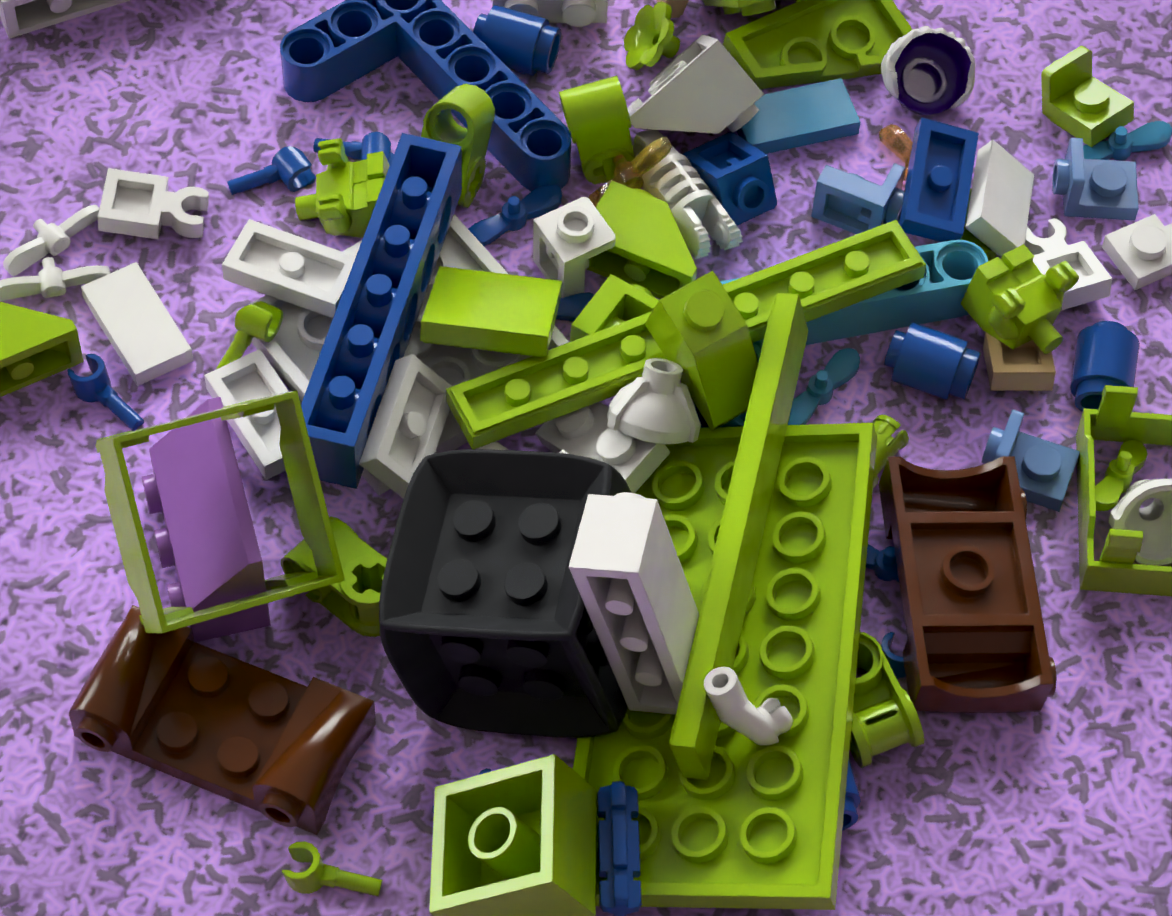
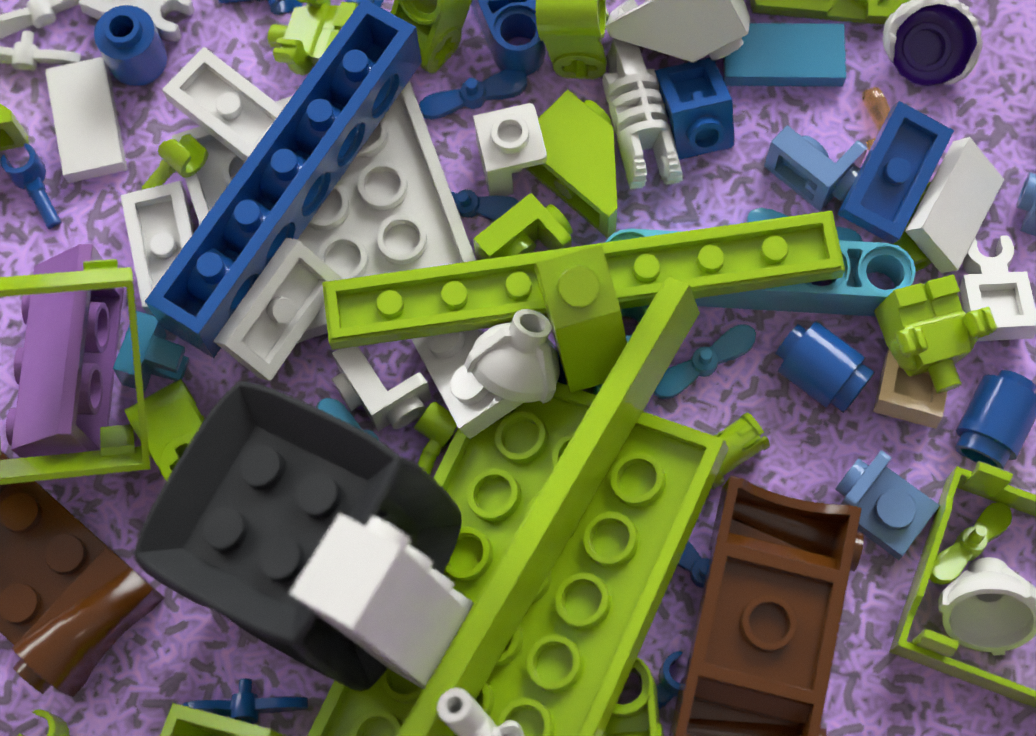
camera: 25 degrees right, 15 degrees up
(167, 241) = (130, 45): none -> blue brick
(278, 509) = (157, 355): none -> dark azure tile
(491, 311) = (396, 207): lime tile -> none
(630, 172) = (591, 82): clear yellow piece -> none

